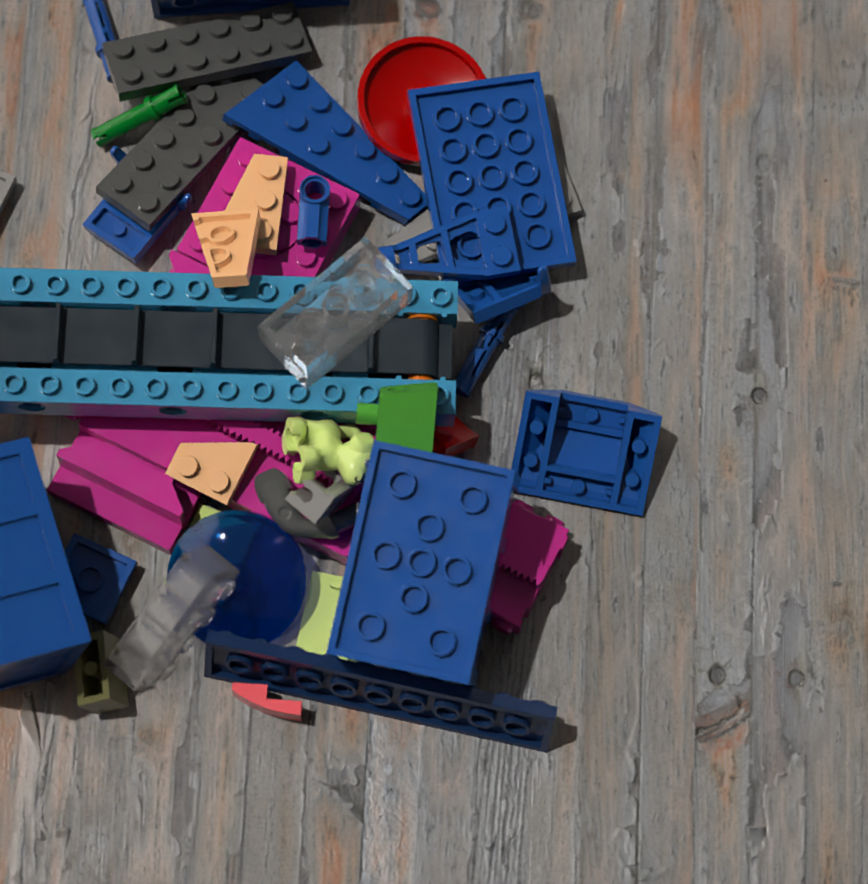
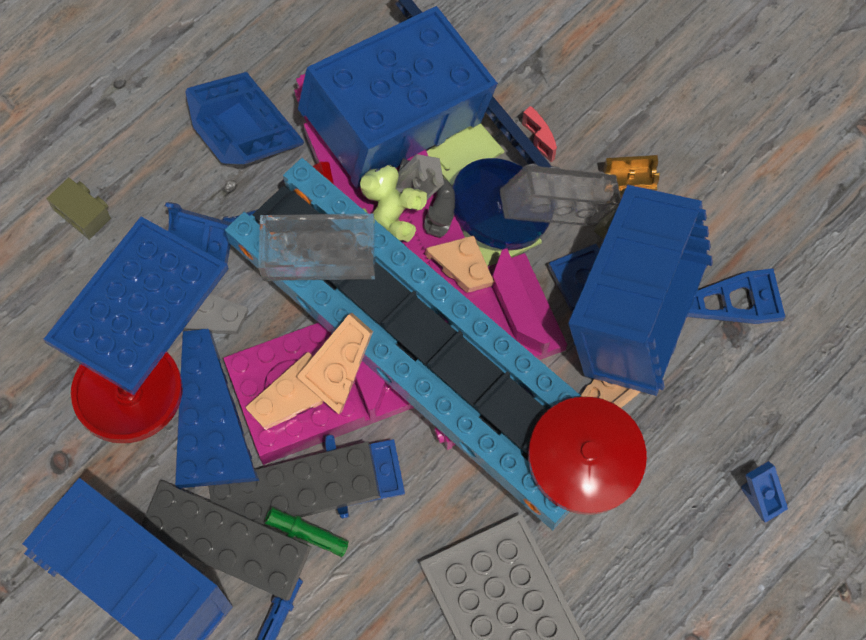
camera: 135 degrees left, 5 degrees down
(133, 737) = (634, 170): none -> pearl gold hinge
(313, 213) = (265, 353): blue piece -> none
(403, 415) = (332, 169): bright green torso -> none
(495, 242) = (179, 253): blue plate -> none
(651, 230) = (79, 208): none -> olive brick

